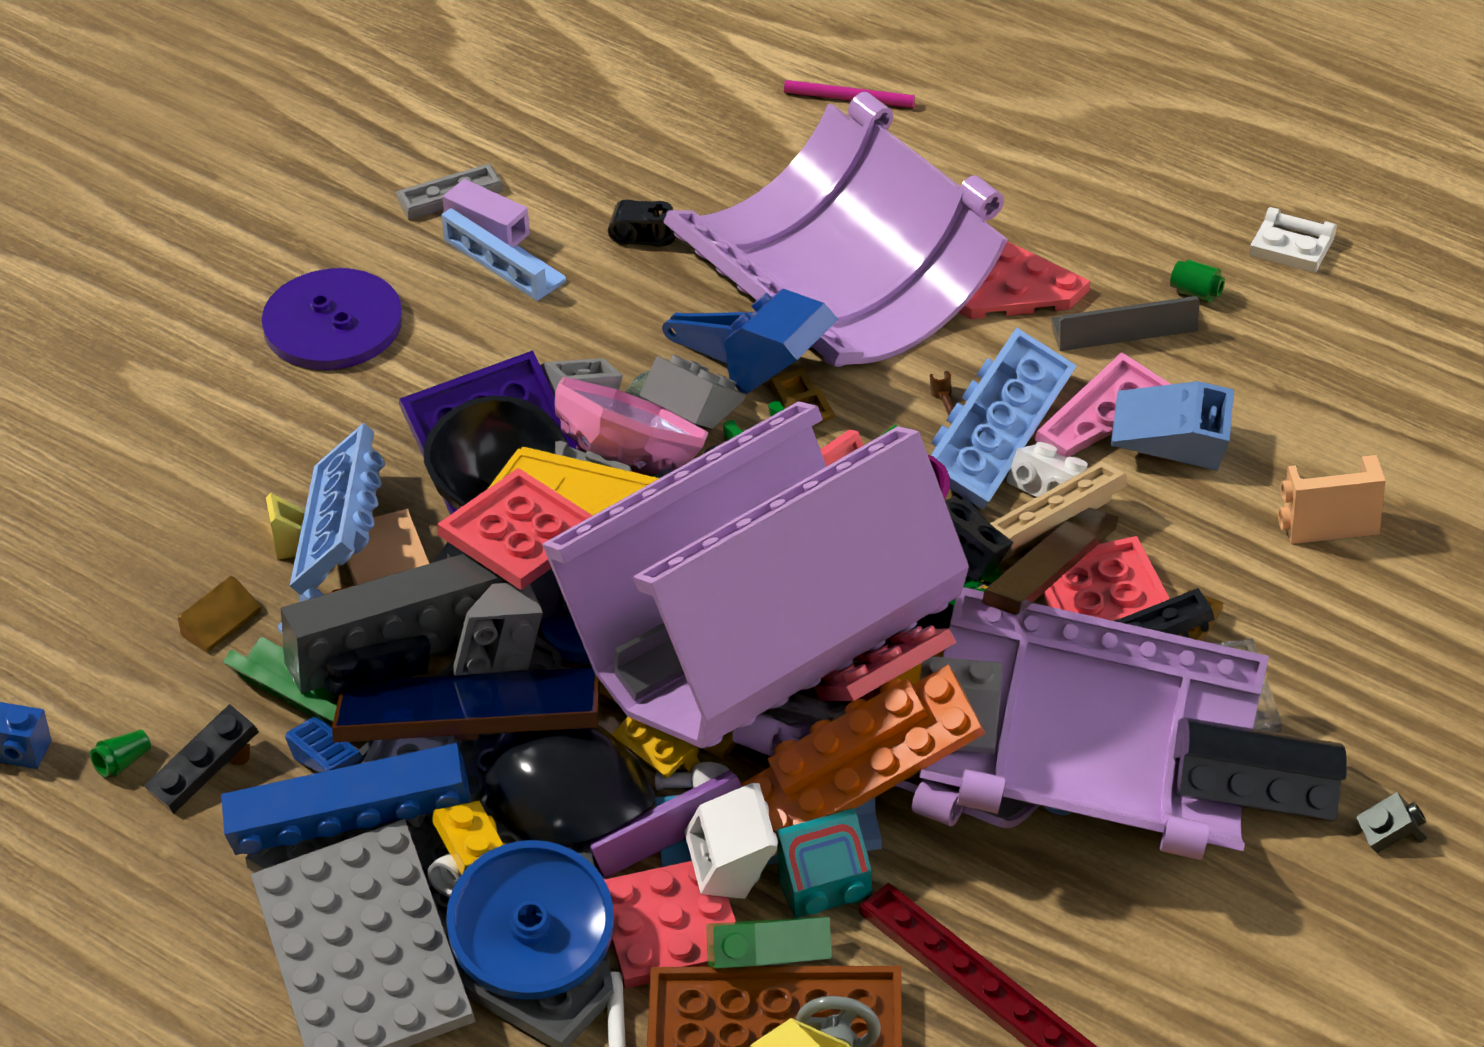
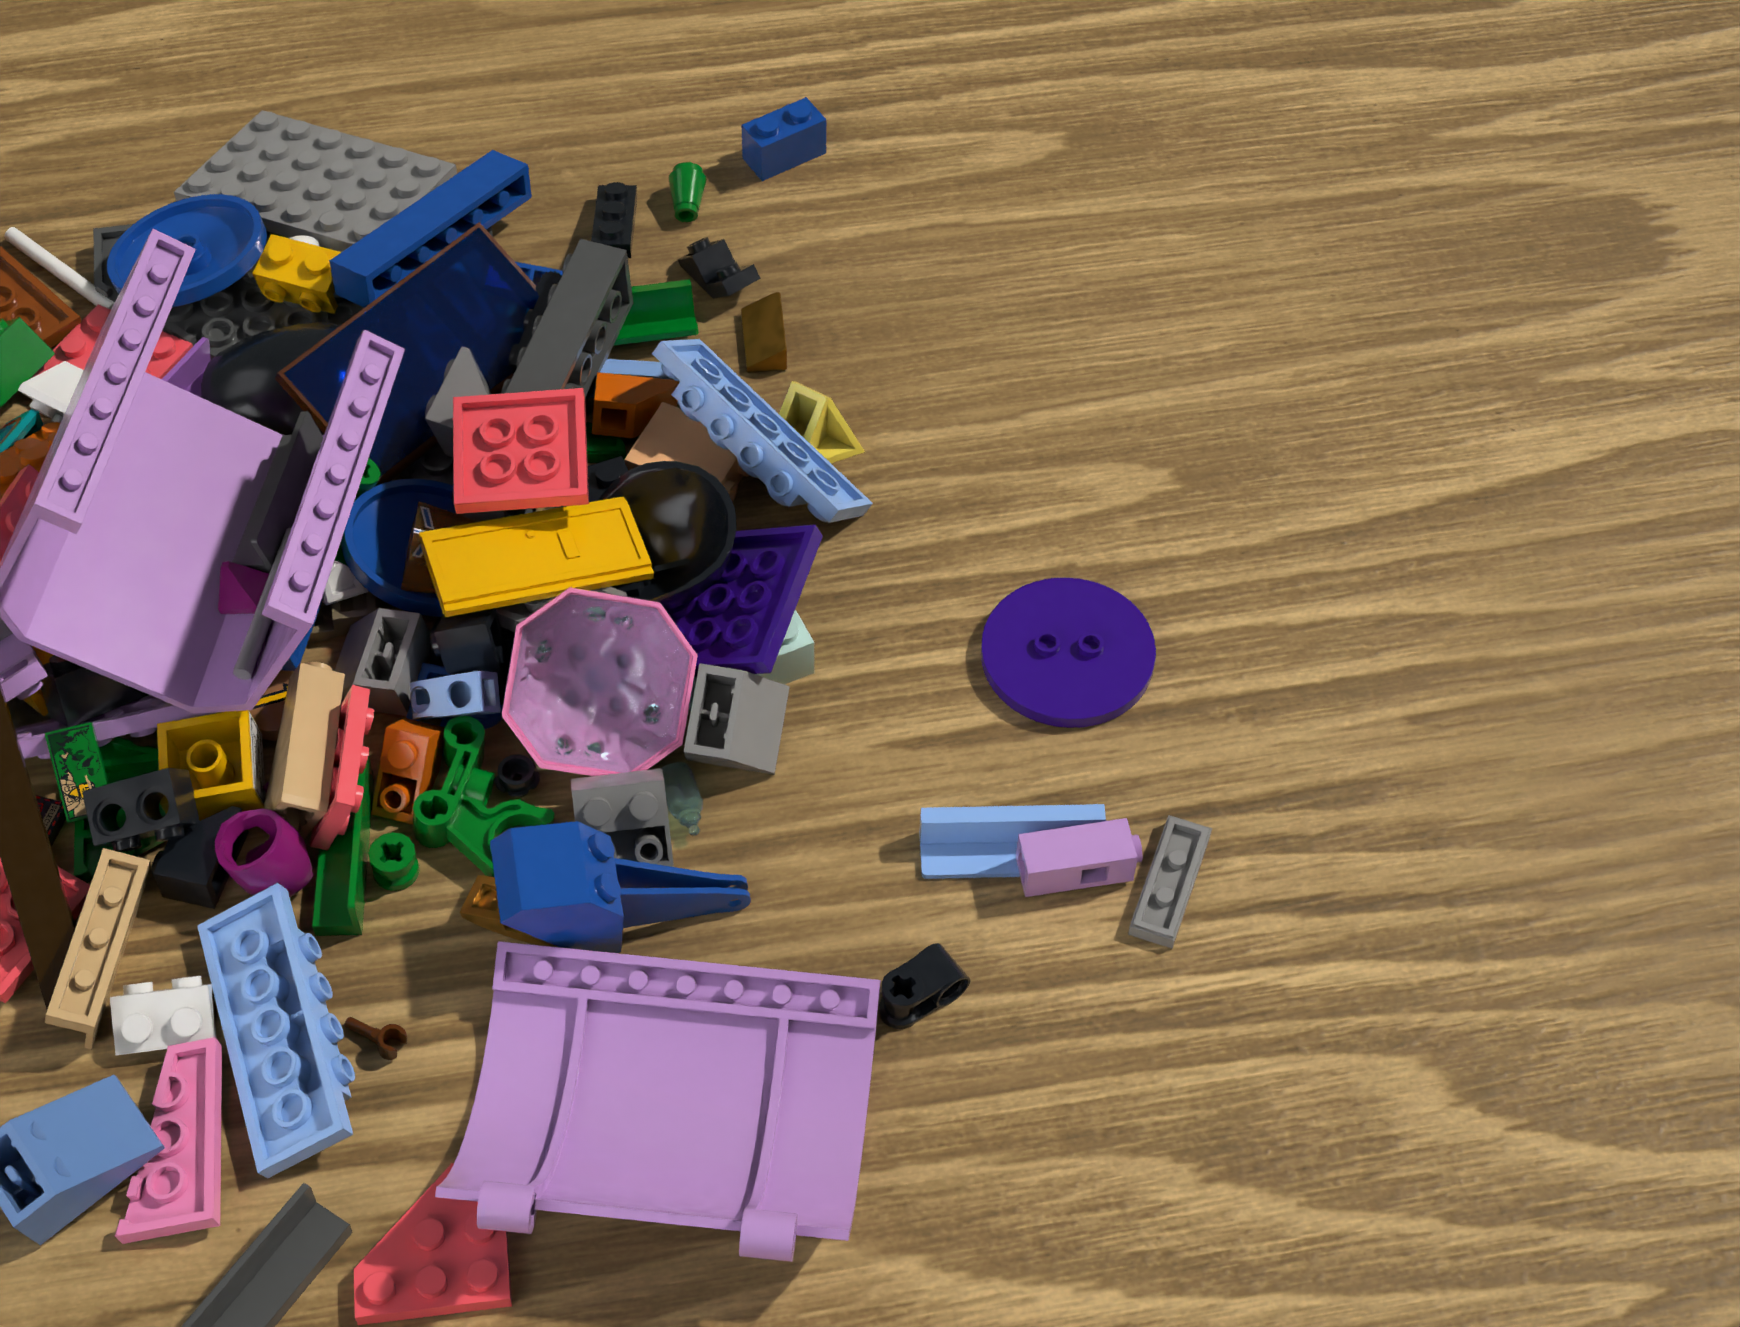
camera: 130 degrees right, 10 degrees up
(187, 678) = (716, 269): none -> black slope

